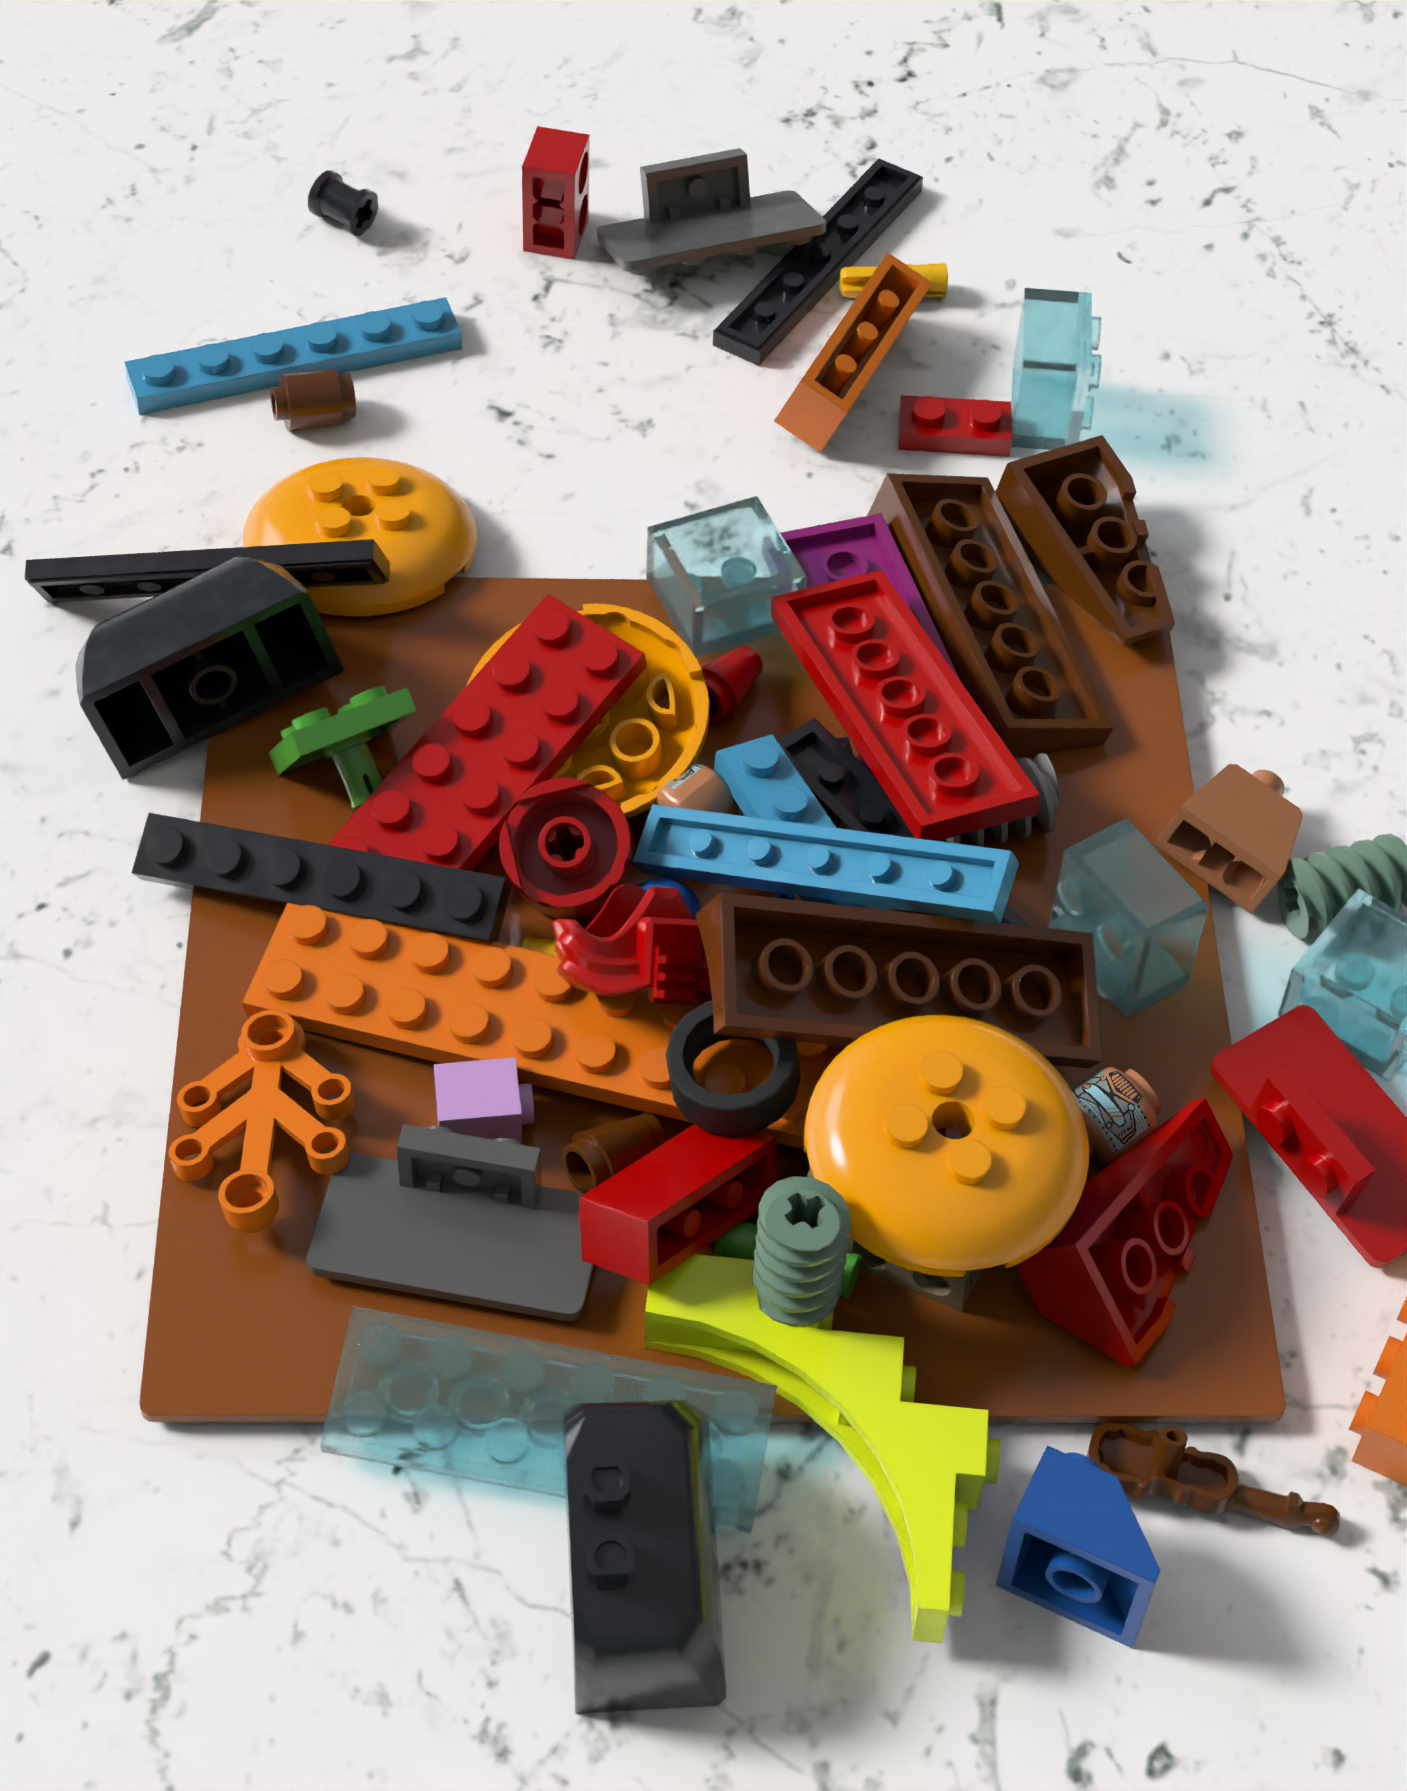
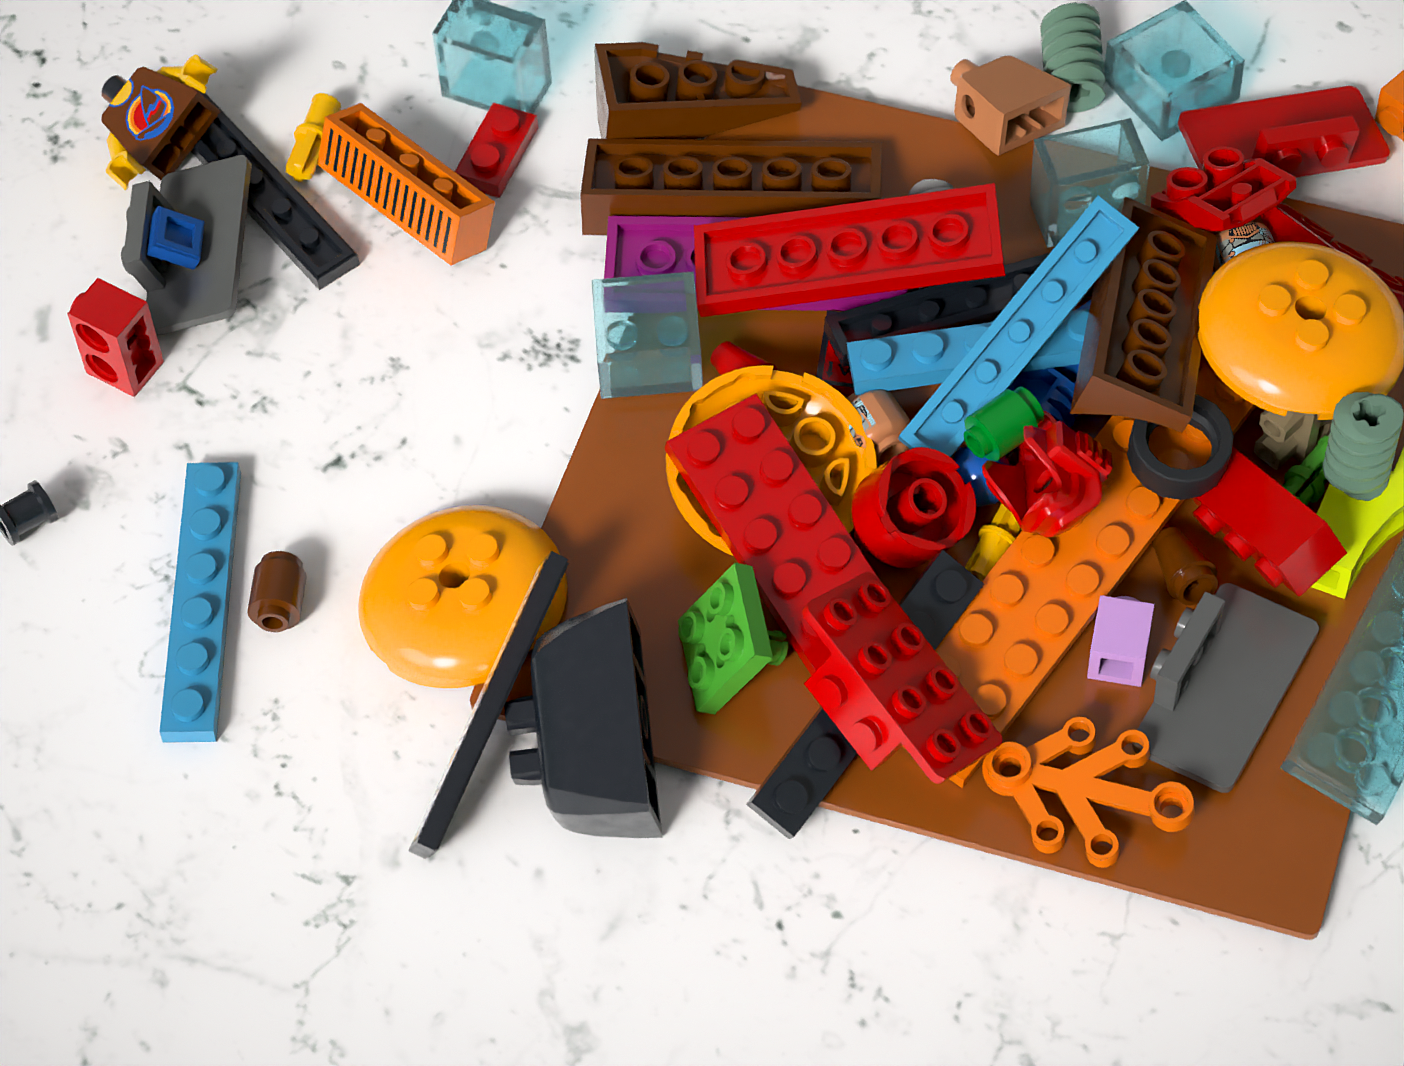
camera: 65 degrees left, 5 degrees up
(308, 873) = (891, 685): none -> red bracket
(693, 874) = (999, 423): none -> green brick
(694, 199) = (175, 238): none -> blue tile
(836, 154) = (156, 118): none -> torso
(1159, 1045) = (1225, 191): none -> red slope

